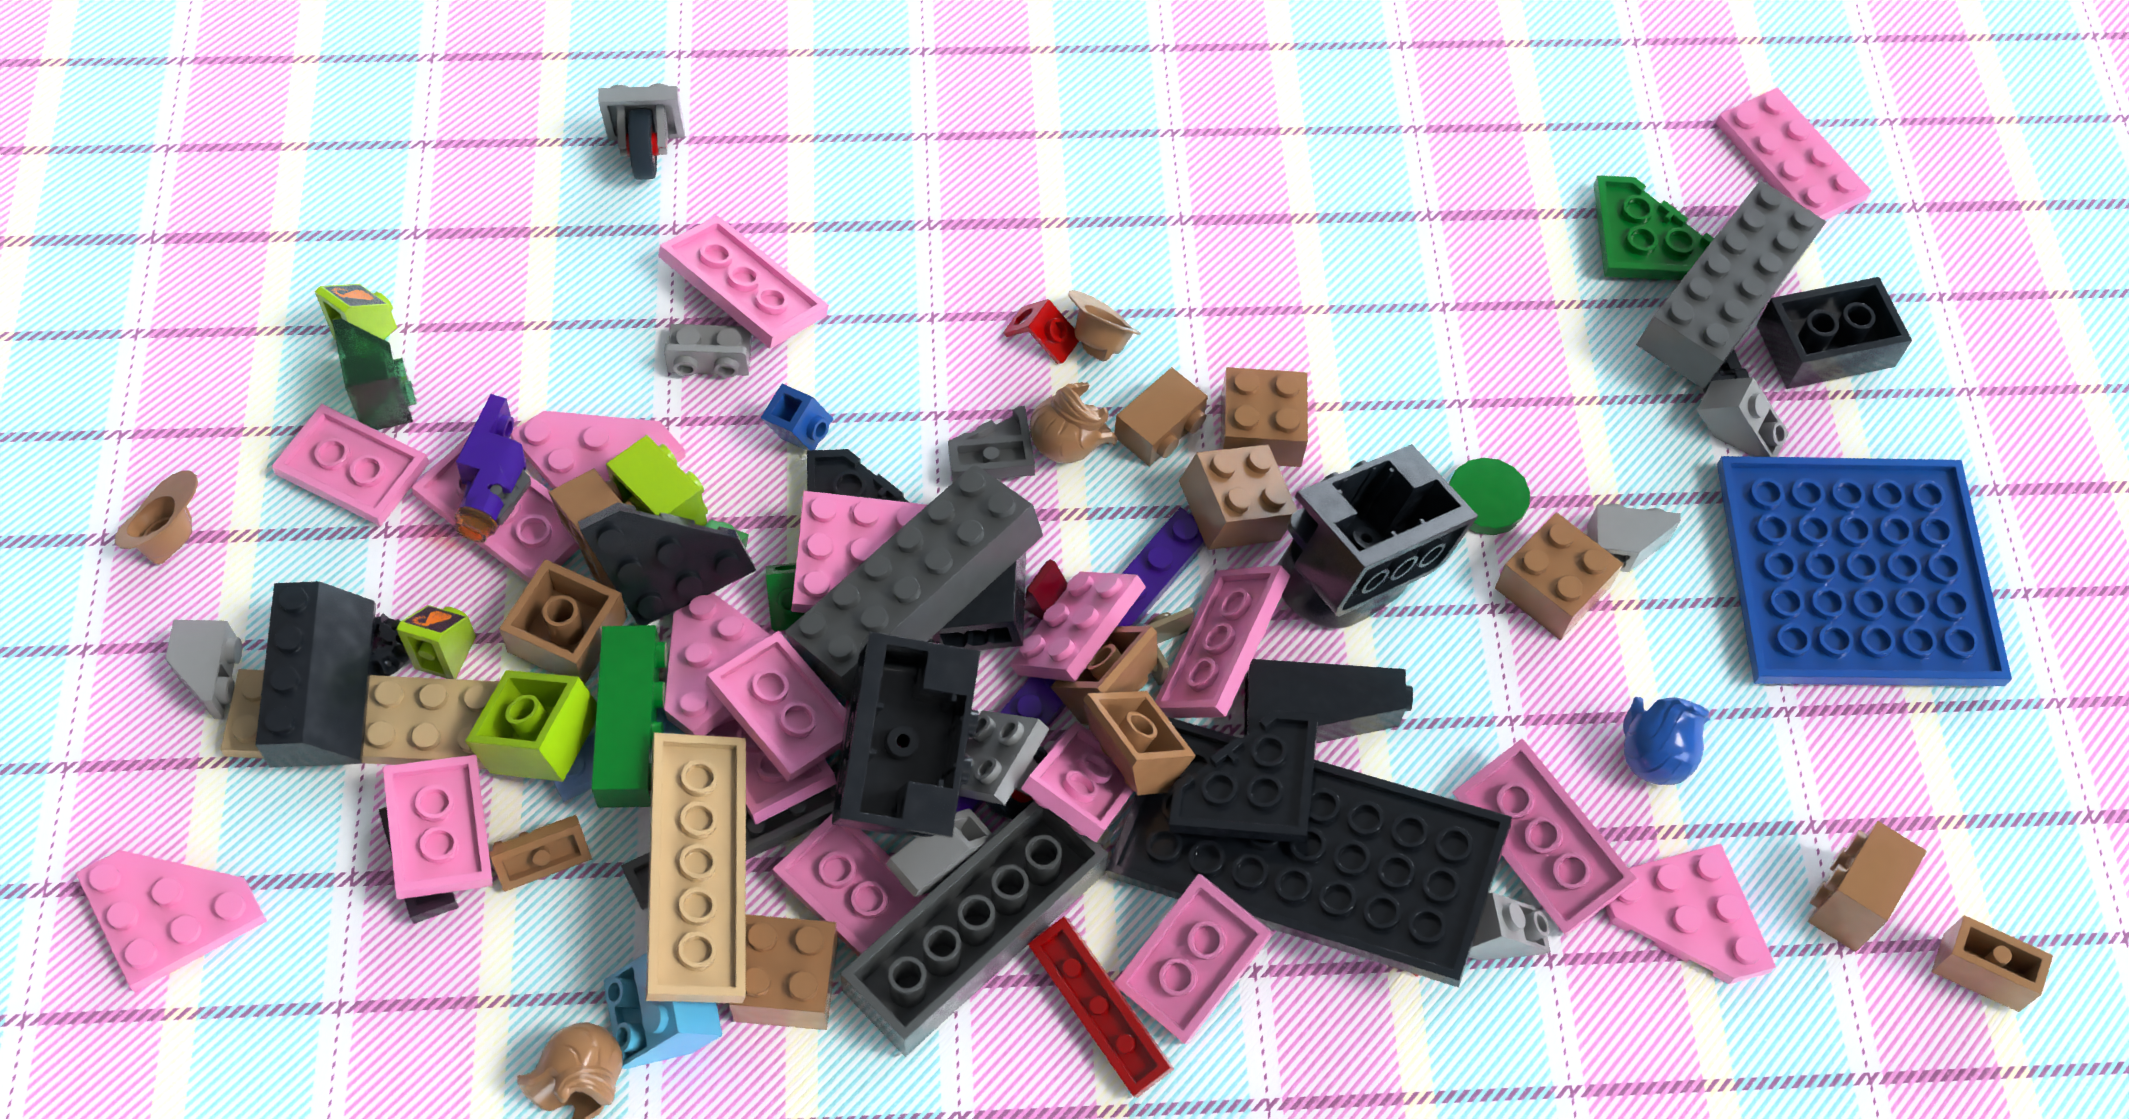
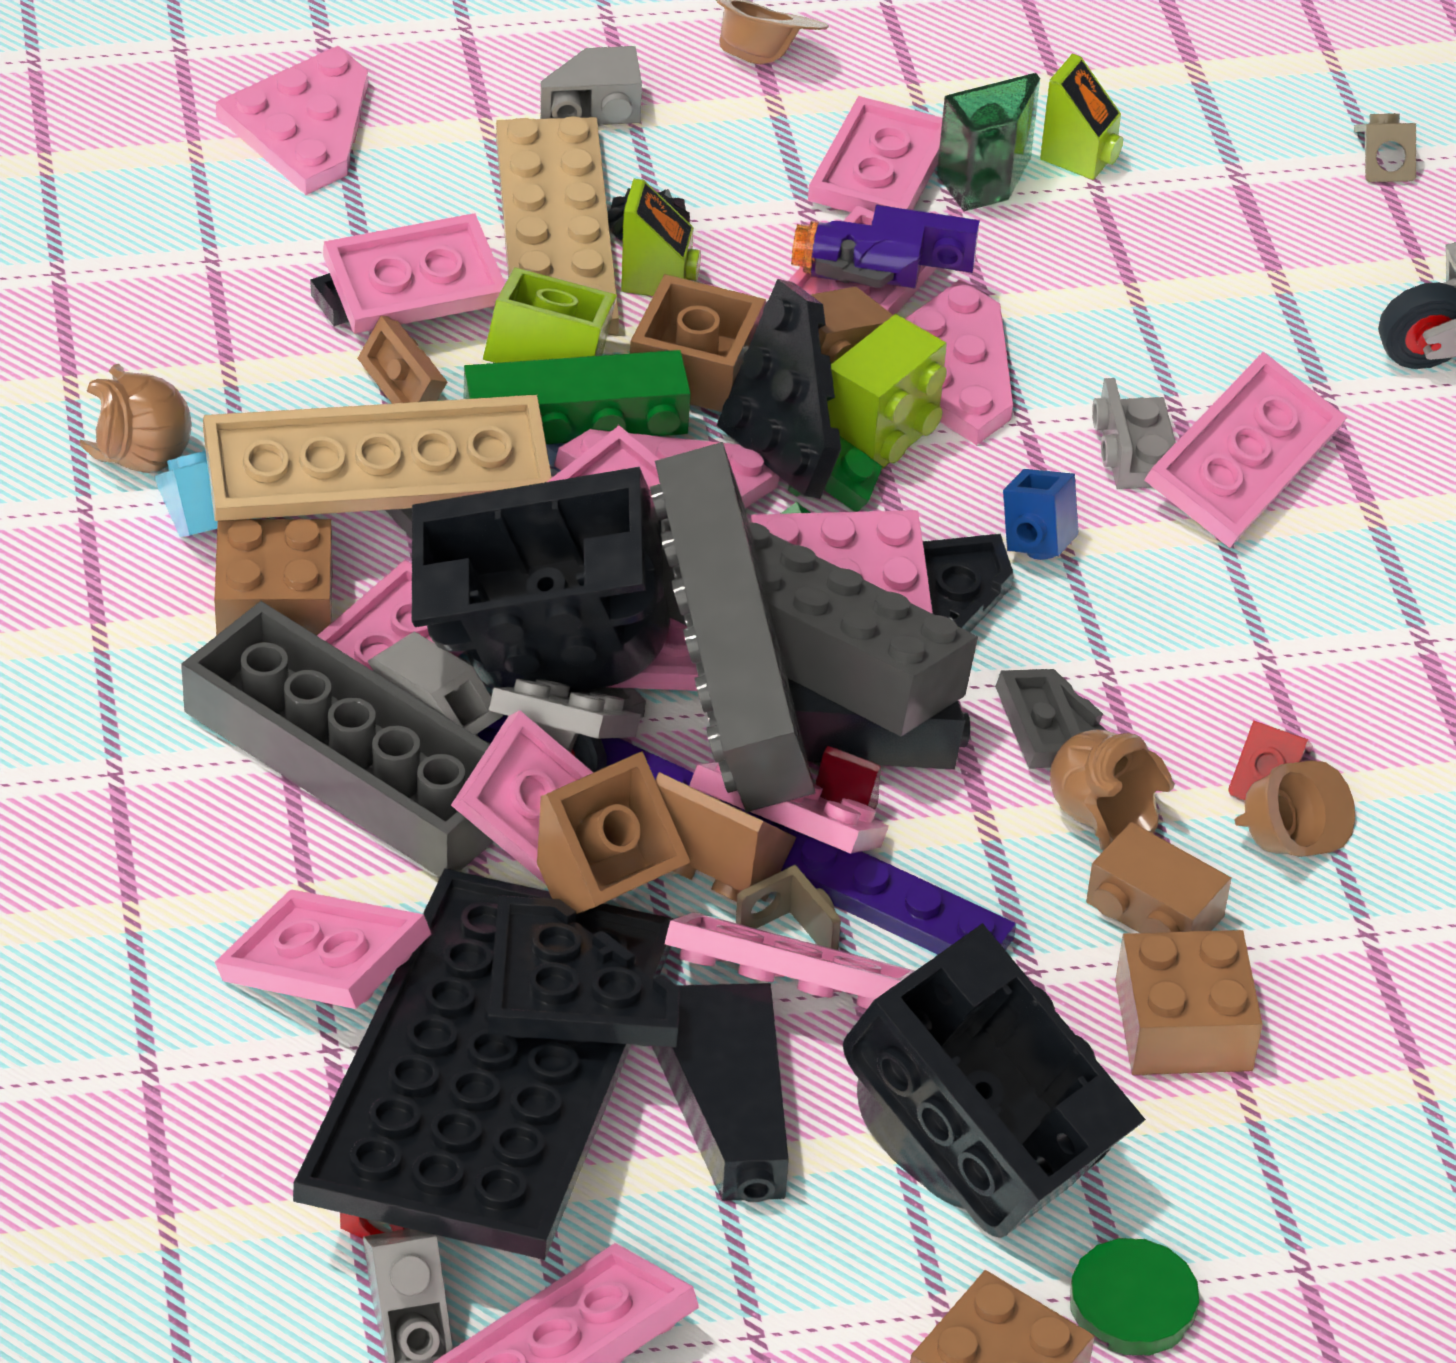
camera: 85 degrees right, 15 degrees down
(315, 676) = (582, 150): black slope -> none
(412, 122) = (1383, 129): none -> dark tan bracket
(992, 607) = (730, 629): none -> dark grey brick
(1101, 1007) = (257, 877): red plate -> none
(1237, 496) = (1055, 949): medium nougat brick -> none

